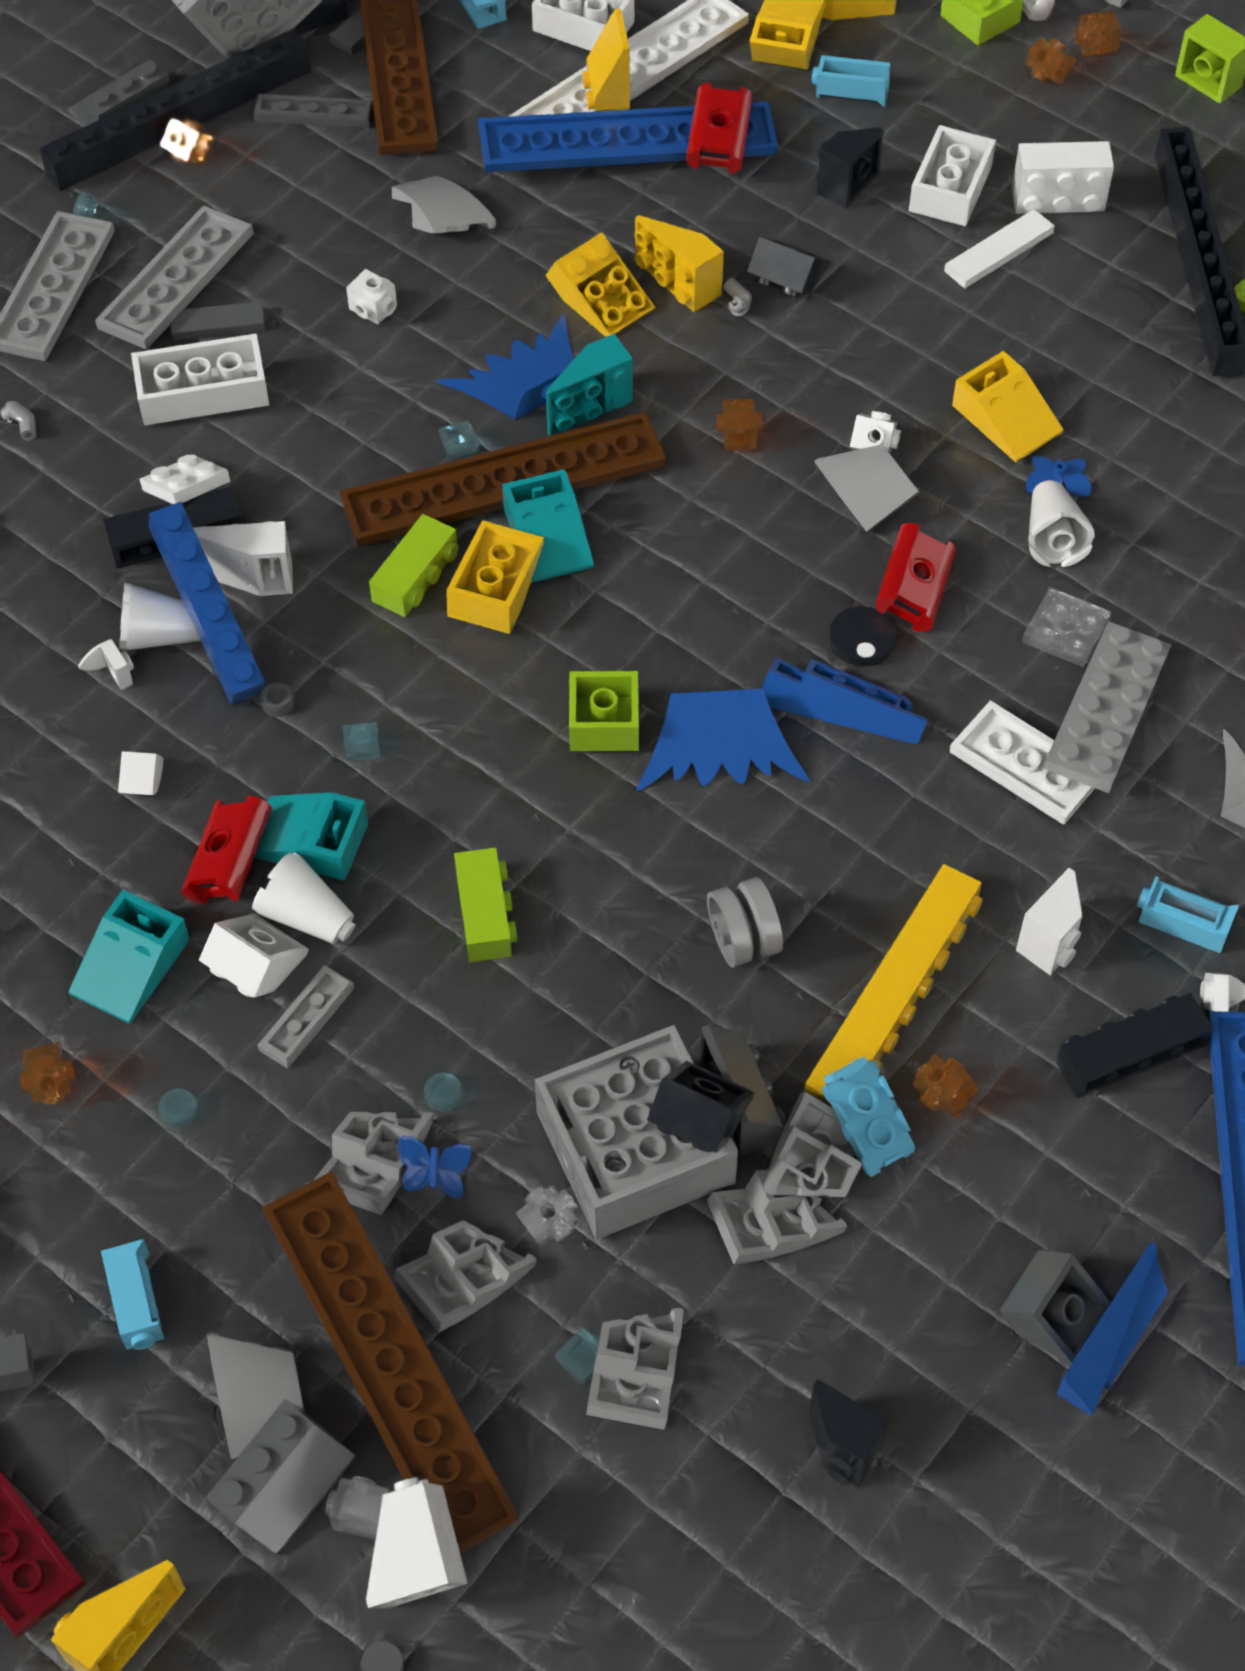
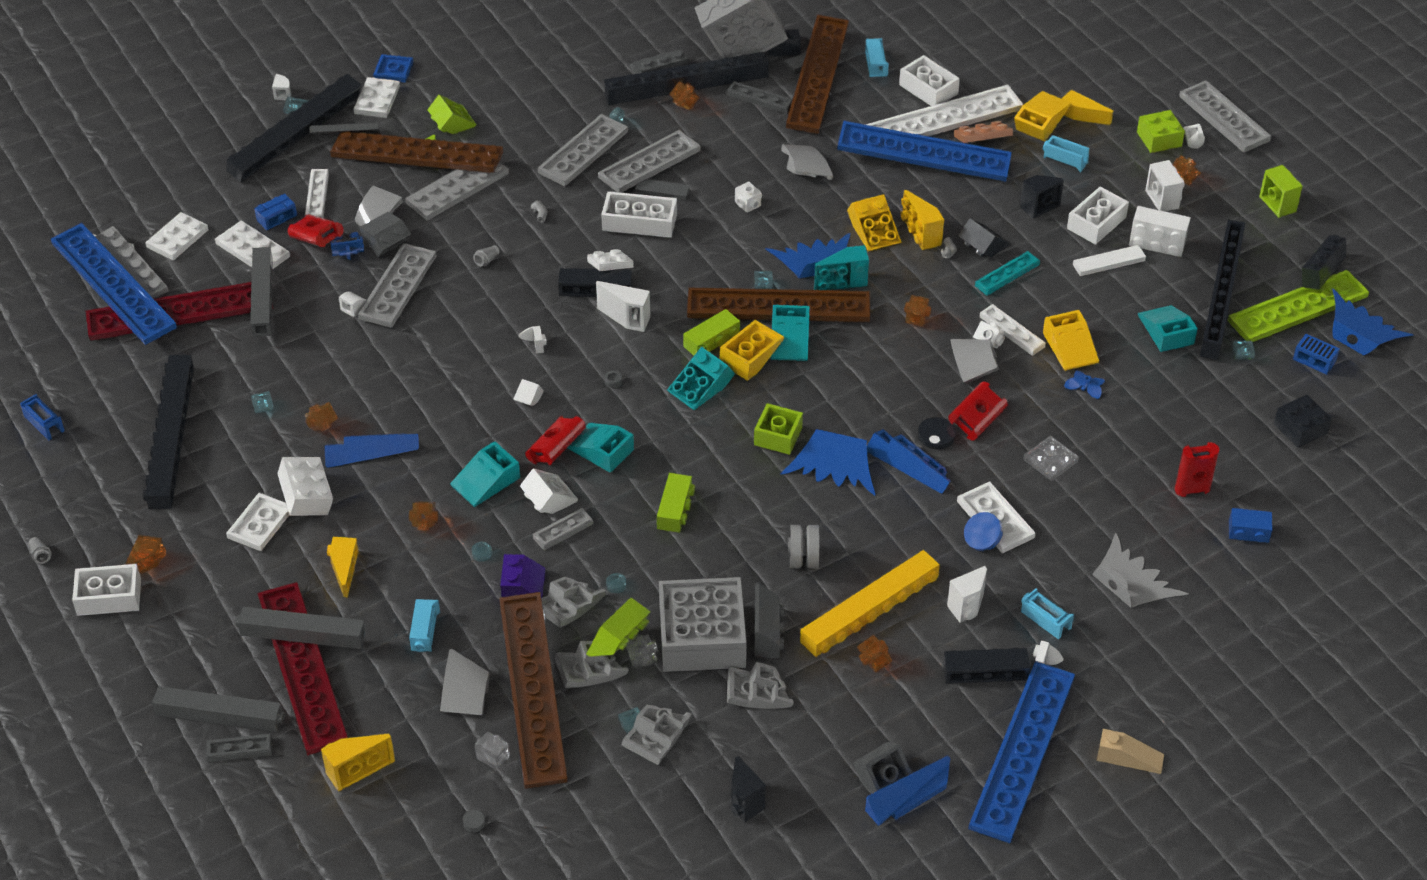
camera: 20 degrees right, 10 degrees down
(153, 620) = (567, 323): white cone -> none
(206, 603) = (593, 320): blue brick -> none
(275, 1142) = (521, 576): none -> dark purple slope
(281, 1476) = (459, 722): dark grey slope -> none
(303, 901) = (582, 473): white cone -> none
(361, 741) = (647, 410): clear light blue plate -> none
(414, 1546) = (507, 769): white slope -> none
(430, 657) = (701, 379): none -> teal slope
(433, 1170) = (593, 613): blue piece -> none
(500, 1194) = (619, 628): none -> lime slope
(609, 68) = (925, 113): yellow slope -> none
(699, 1106) = (733, 614): black slope -> none
(719, 128) = (975, 158): red piece -> none
(721, 73) = (983, 132): none -> nougat plate
(812, 1154) = (792, 663): light grey slope -> none
(849, 315) = (1007, 273): none -> teal tile
(868, 1114) = (827, 654): medium azure piece -> none
(910, 415) = (1013, 330): none -> white tile
(1022, 796) = (983, 531): none -> blue tile
(1034, 97) = (1164, 186): none -> white brick
(1057, 527) = (1068, 407): white cone -> none
(1098, 33) = (1220, 162): clear orange brick -> none
(1107, 707) = (1053, 502): light grey plate -> none
(1147, 338) = (1169, 327): none -> teal slope

